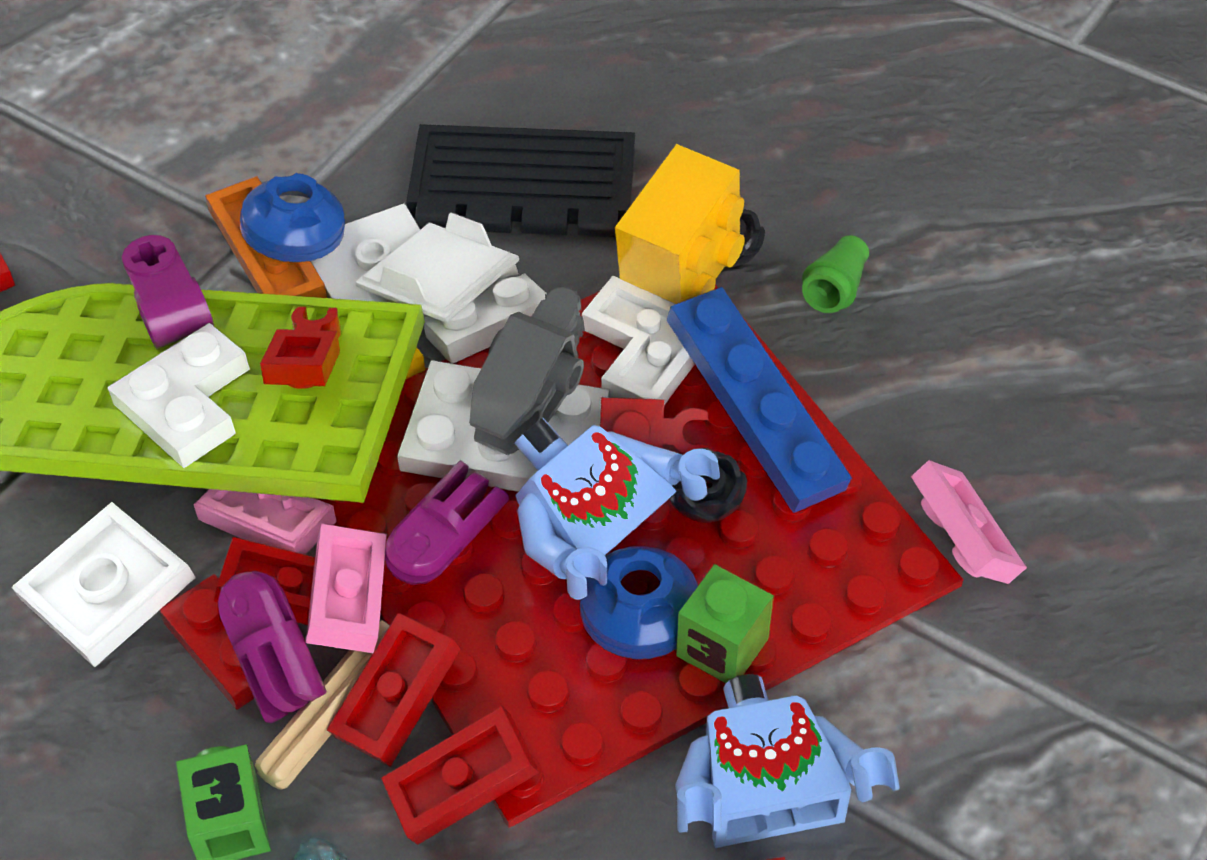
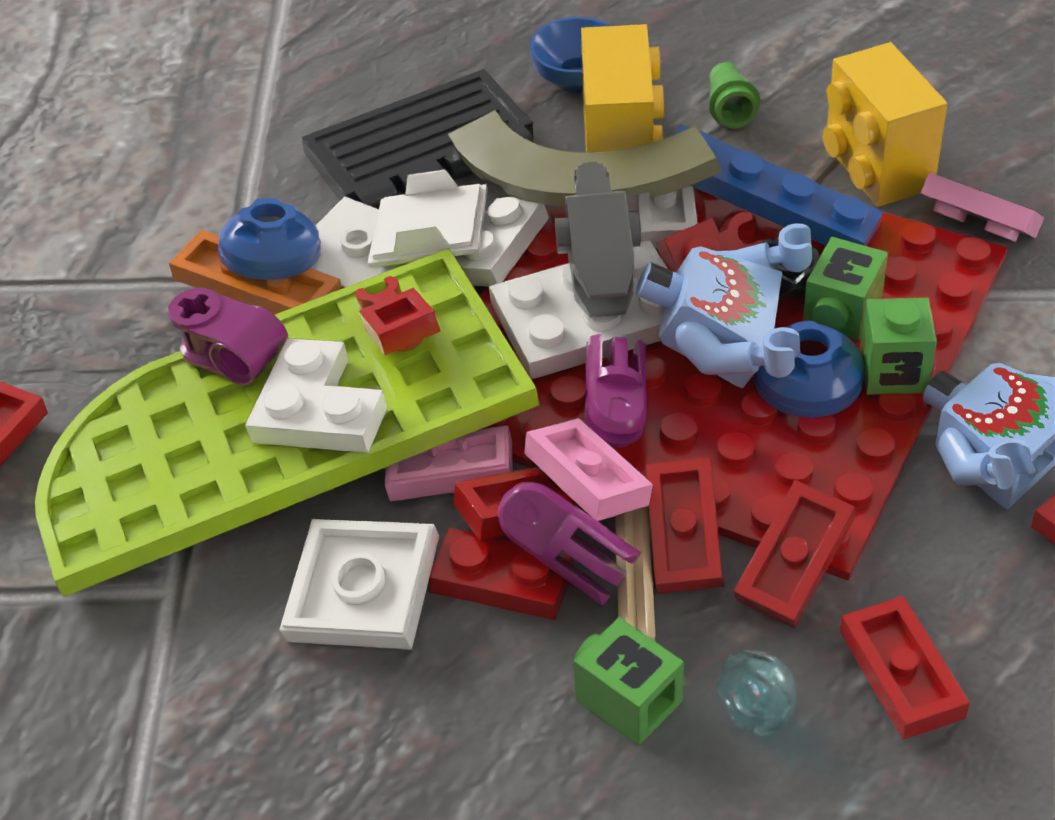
camera: 30 degrees left, 5 degrees down
(609, 307) = (548, 174): none -> olive tile
(736, 143) = (559, 48): none -> blue piece
(737, 534) = (842, 283): none -> bright green brick
(929, 382) = (883, 123): none -> yellow brick

